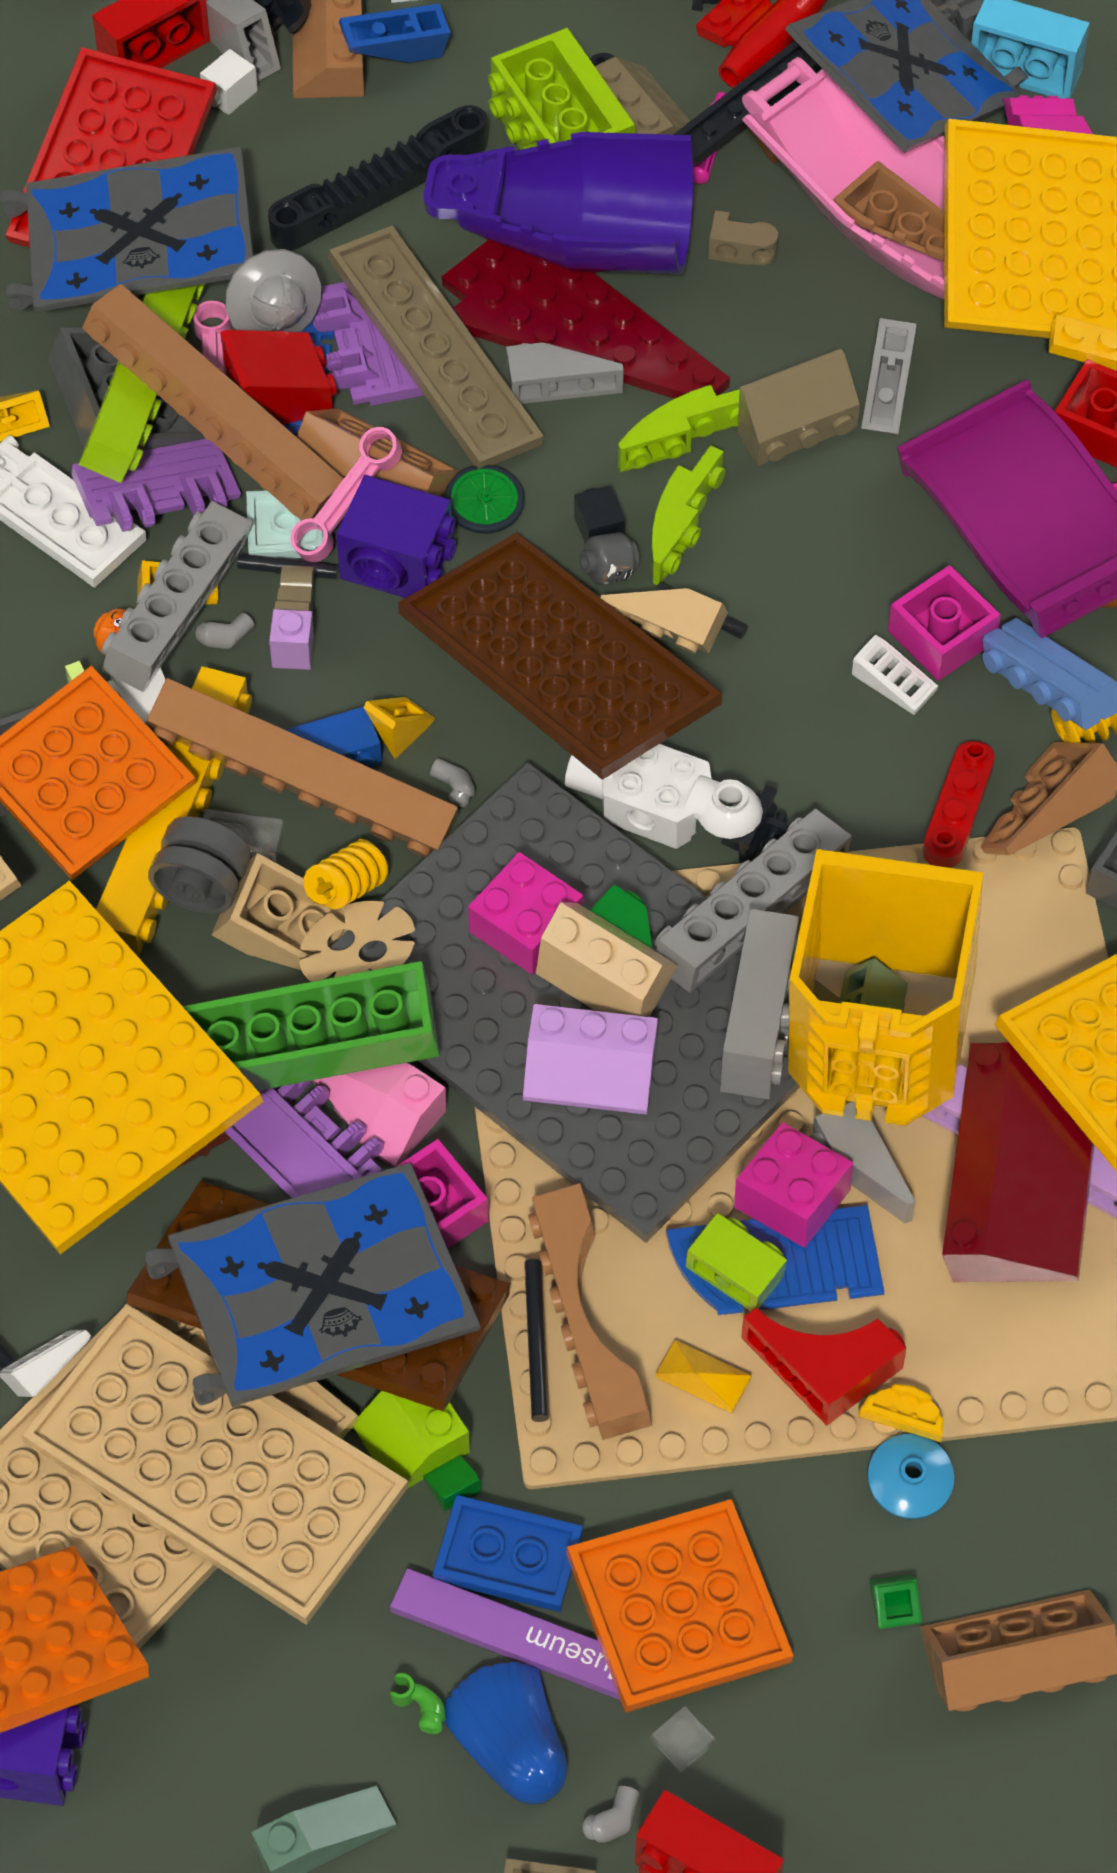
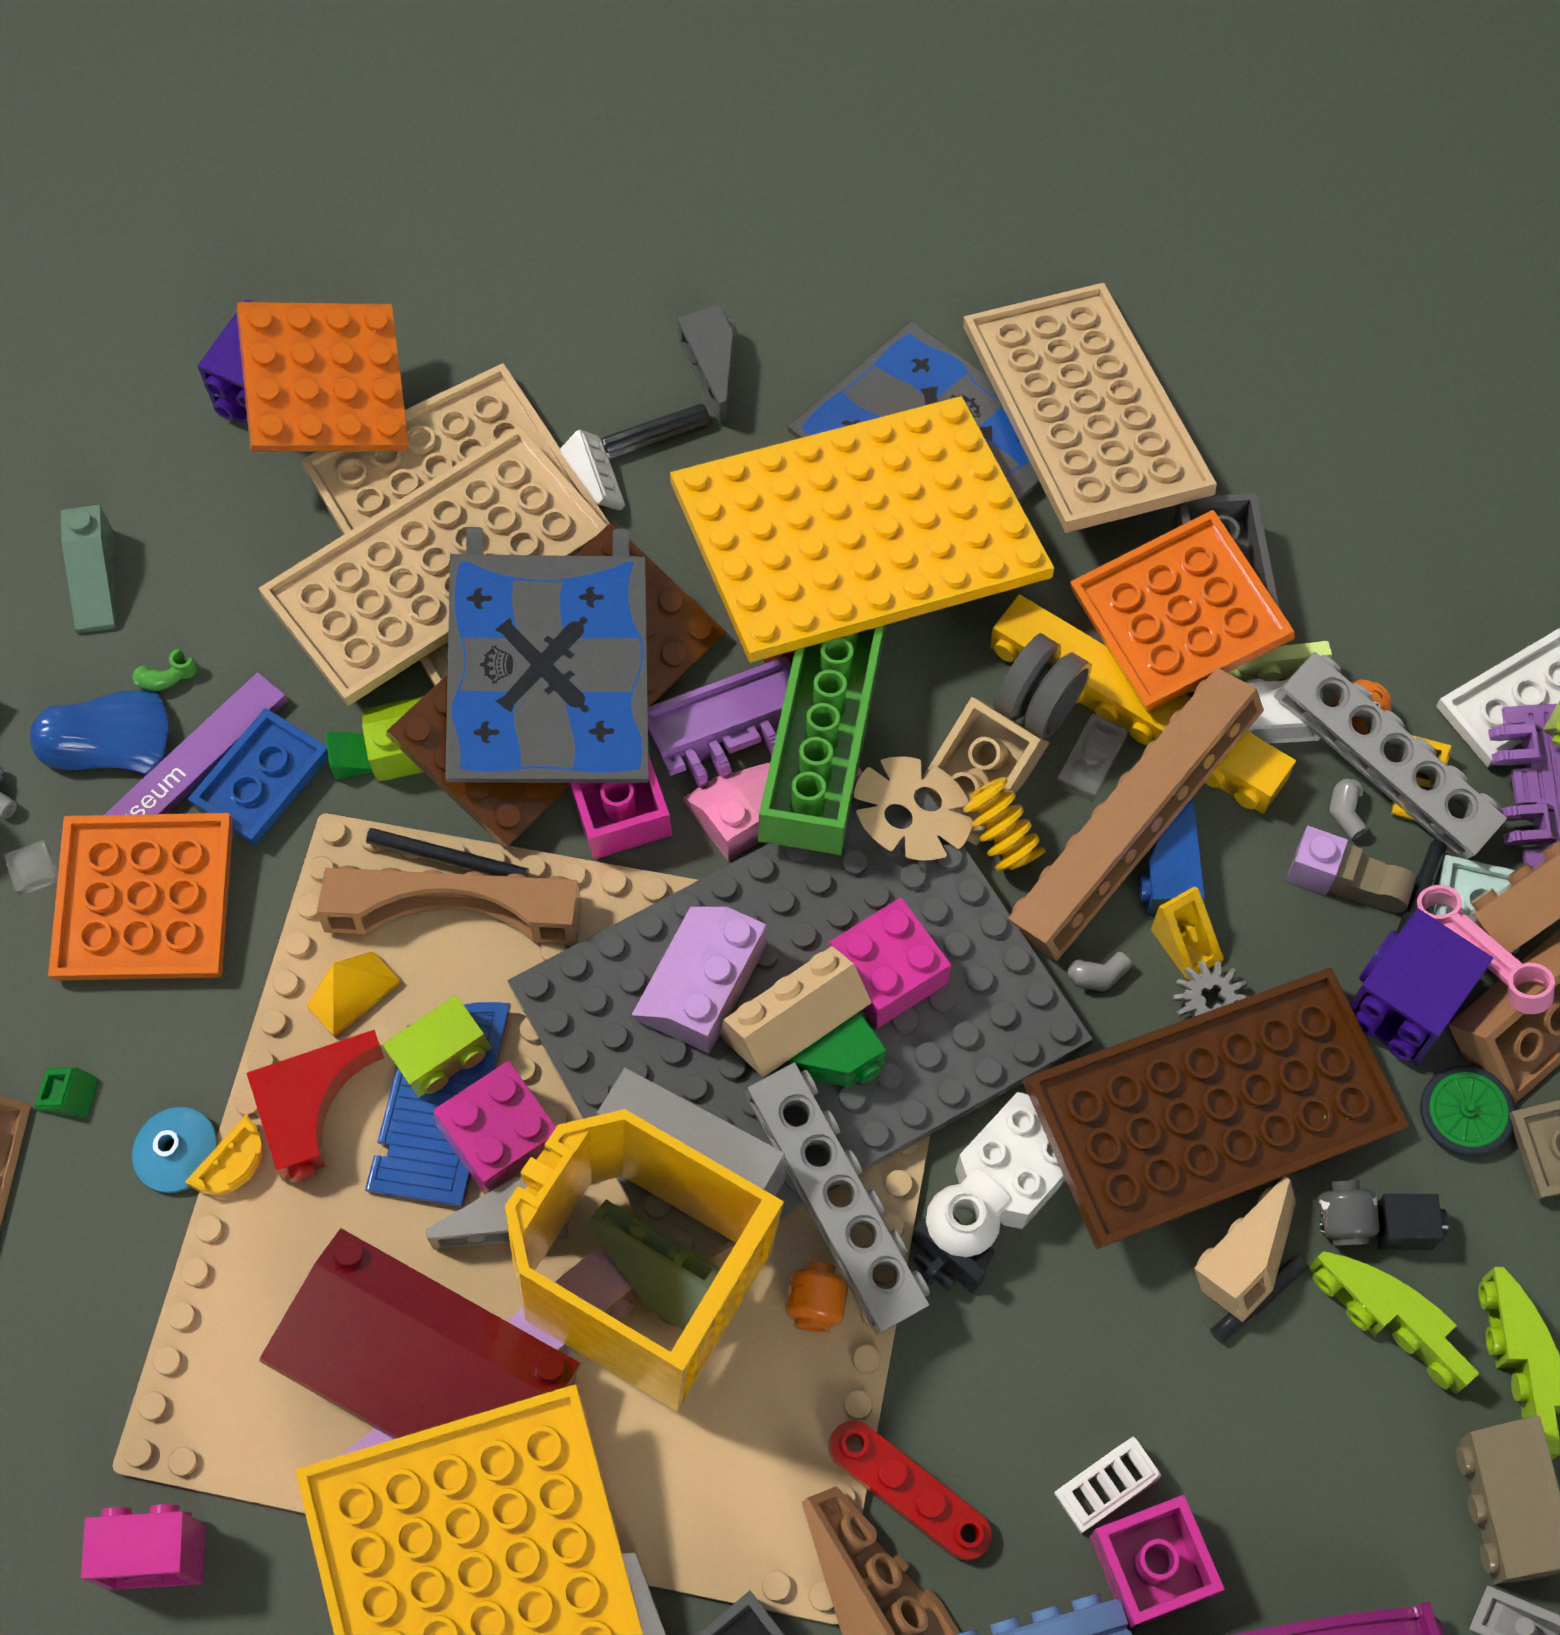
camera: 110 degrees right, 5 degrees up
(448, 708) = (1206, 981): none -> light grey gear

